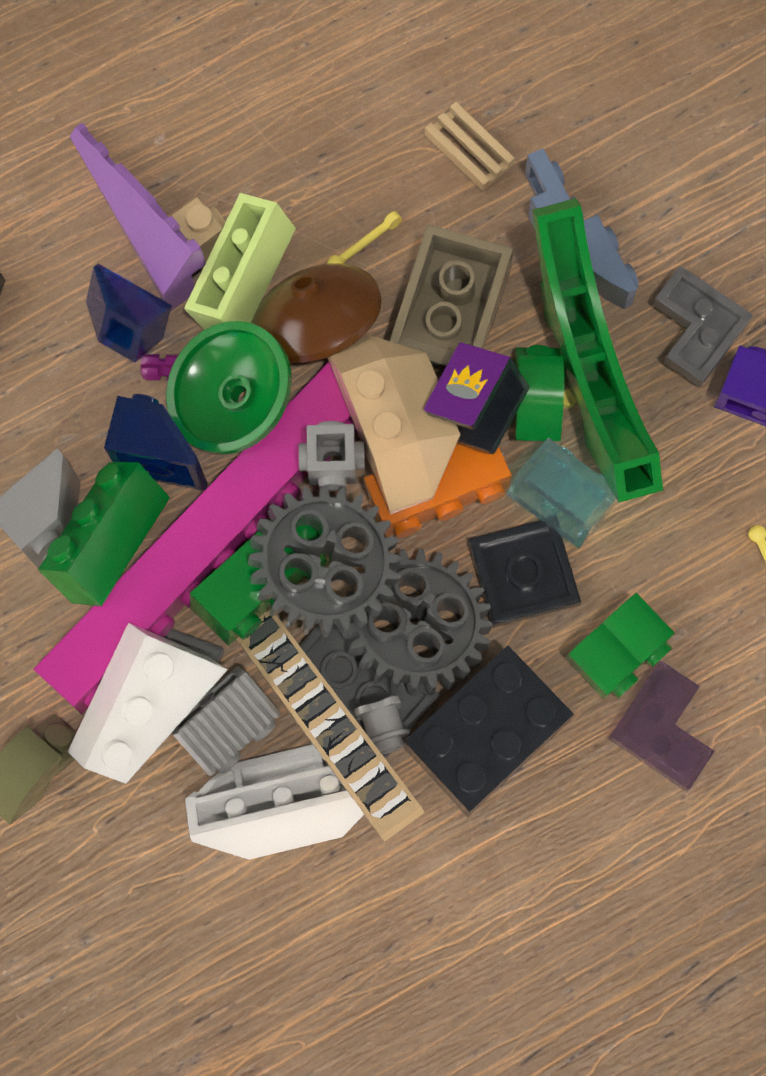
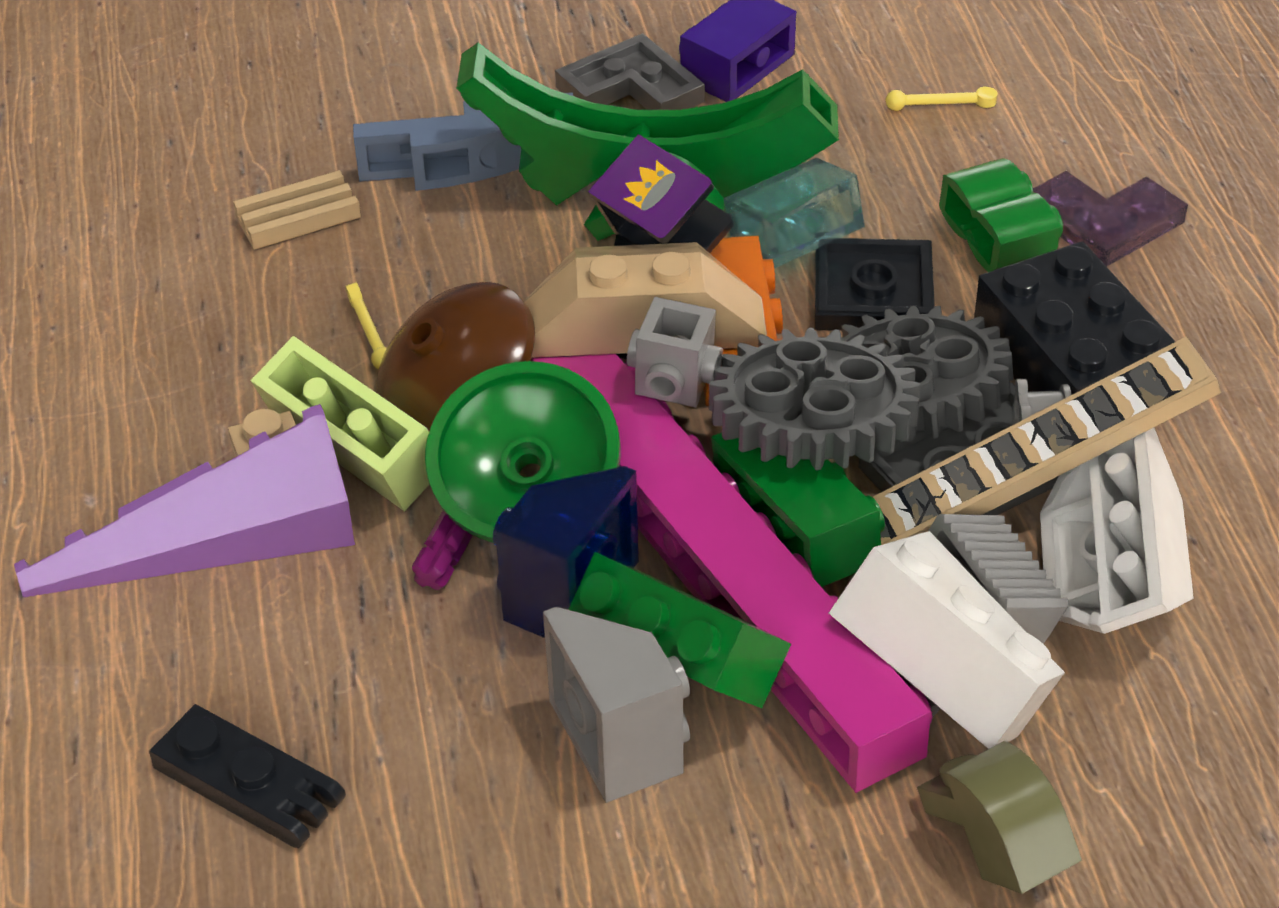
camera: 75 degrees left, 30 degrees down
(125, 314) = (341, 564): clear blue slope -> none
(452, 293) = (494, 231): dark tan slope -> none

